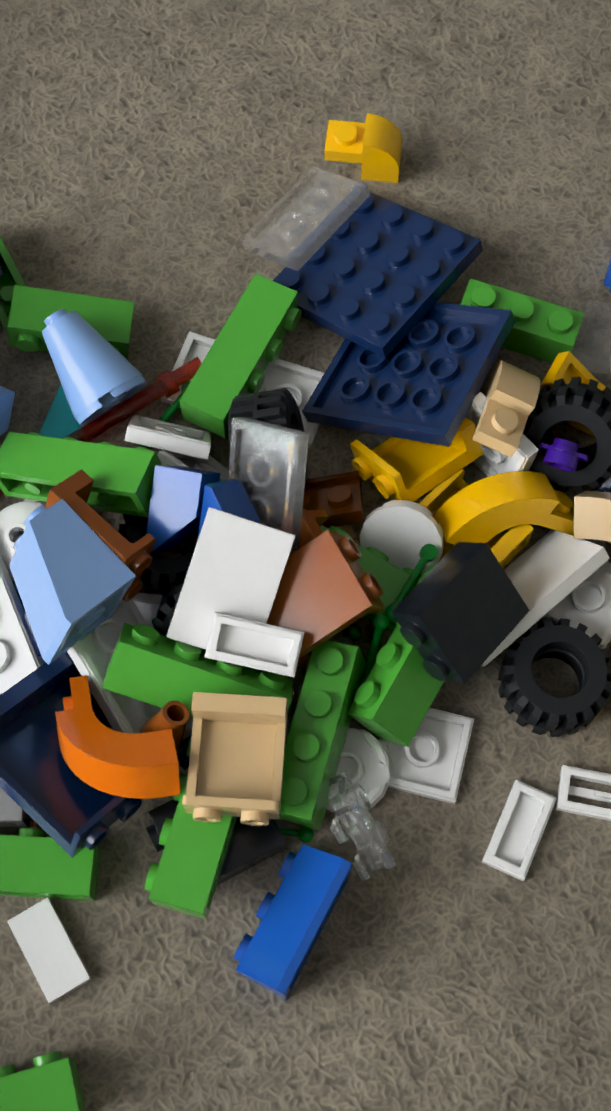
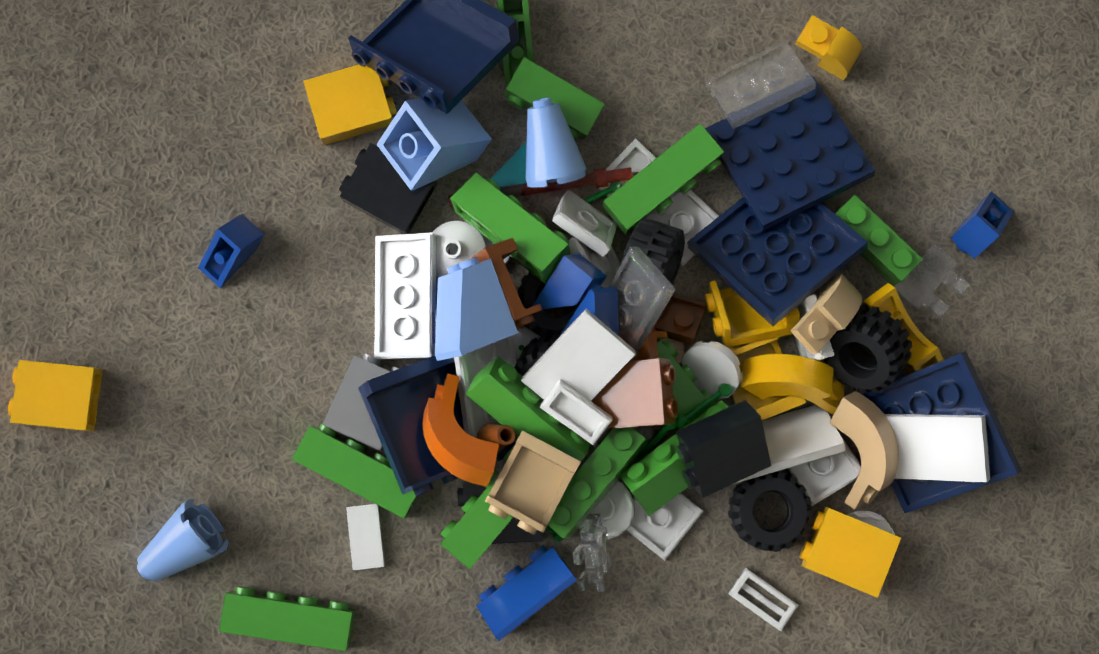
camera: 20 degrees right, 15 degrees up
(519, 830) = (697, 596): white tile -> none
(562, 455) = (849, 364): dark purple plate -> none

